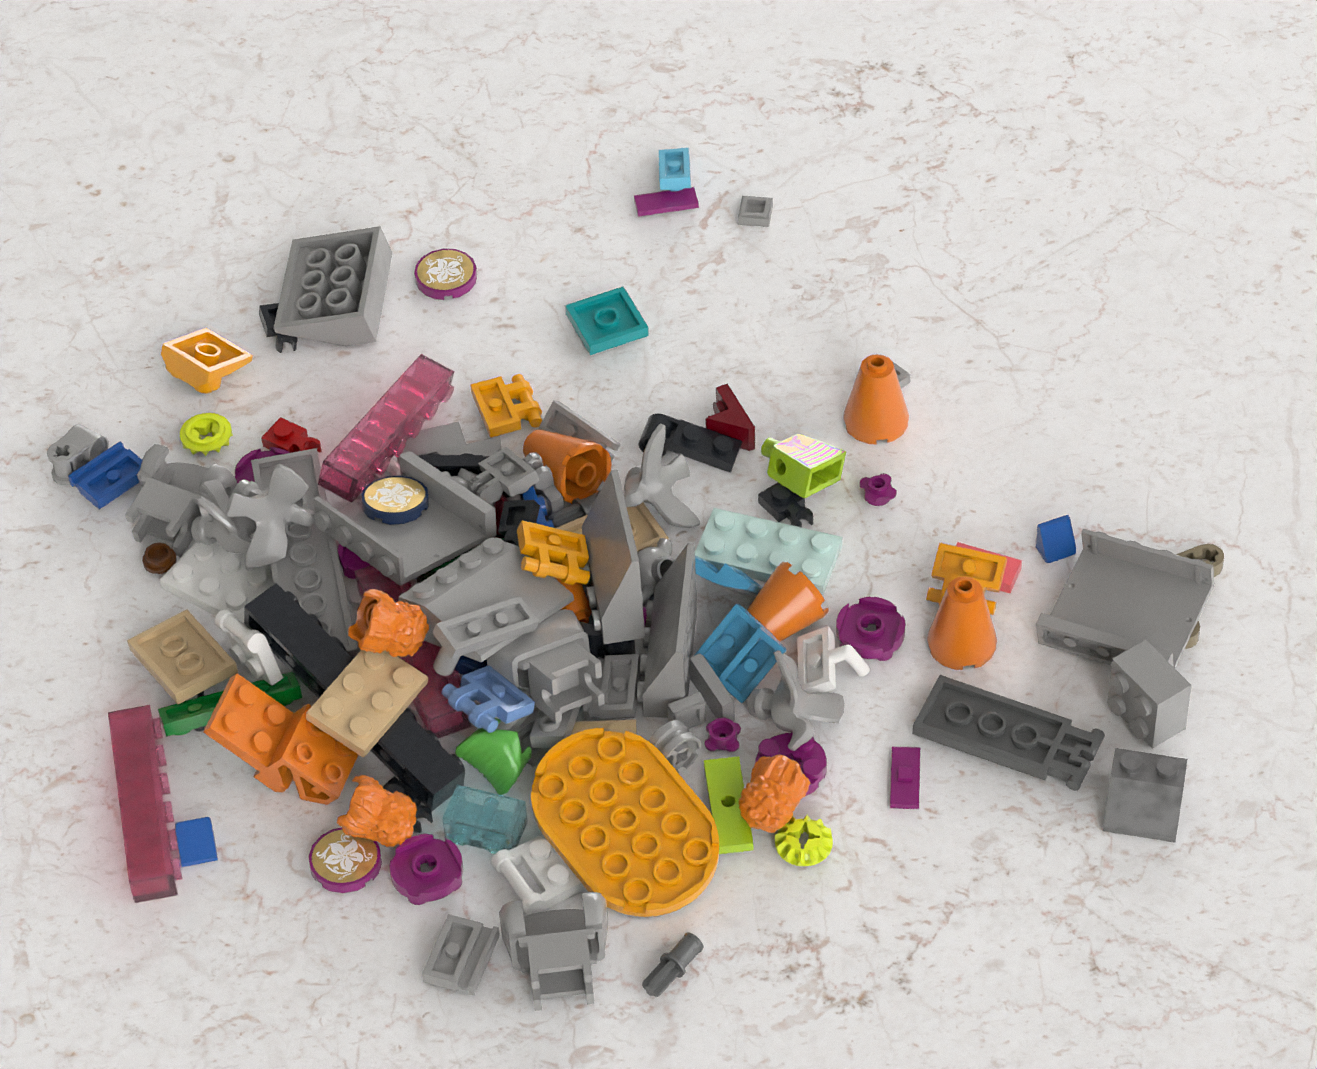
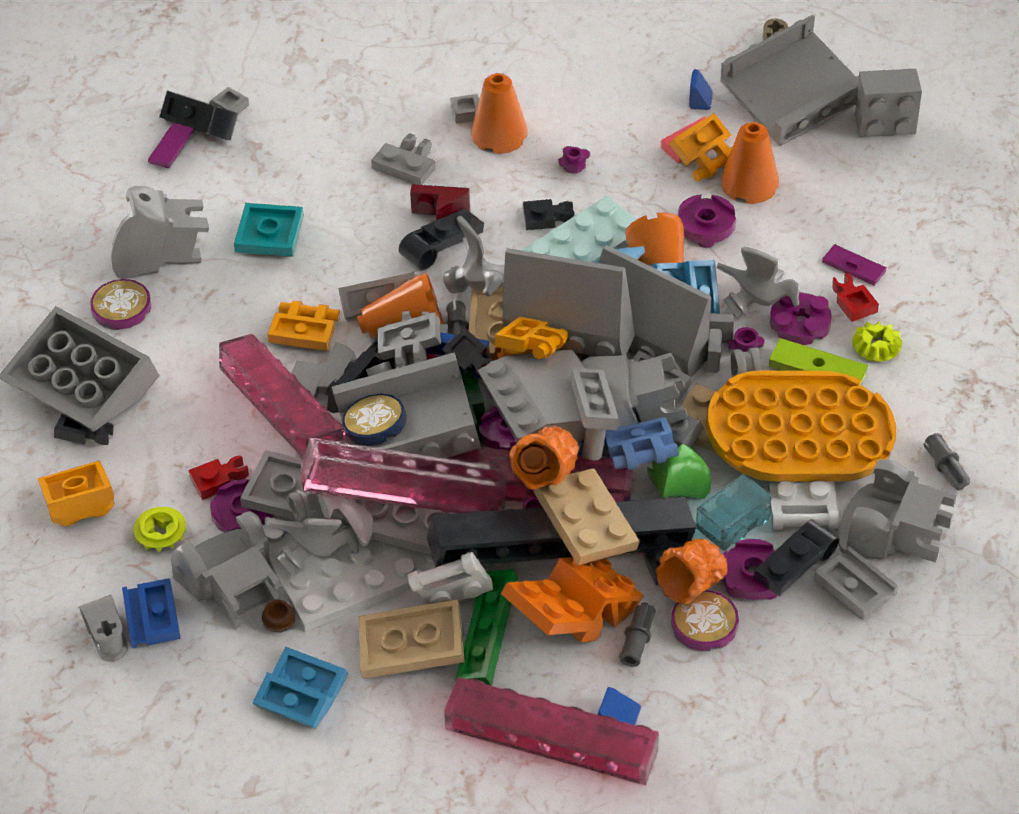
camera: 60 degrees left, 0 degrees up
(93, 613) = (301, 687): none -> dark azure slope
(293, 816) = (637, 635): none -> dark grey axle
(295, 537) = (401, 478): none -> clear pink brick
(455, 890) = (796, 556): none -> black plate
(506, 244) = (156, 233): none -> light grey piece
(674, 169) = (147, 122): medium azure plate -> none
(713, 199) = (199, 115): none -> black plate
(772, 793) = (839, 328): orange hair -> none
(777, 370) = (404, 163): none -> light grey hinge
(803, 463) = (524, 181): lime torso -> none
(818, 659) = (720, 252): white plate -> none
(845, 797) = (854, 301): none -> red plate
(1007, 732) = (855, 193): dark grey hinge -> none
(1145, 795) = (964, 149): flat silver slope -> none

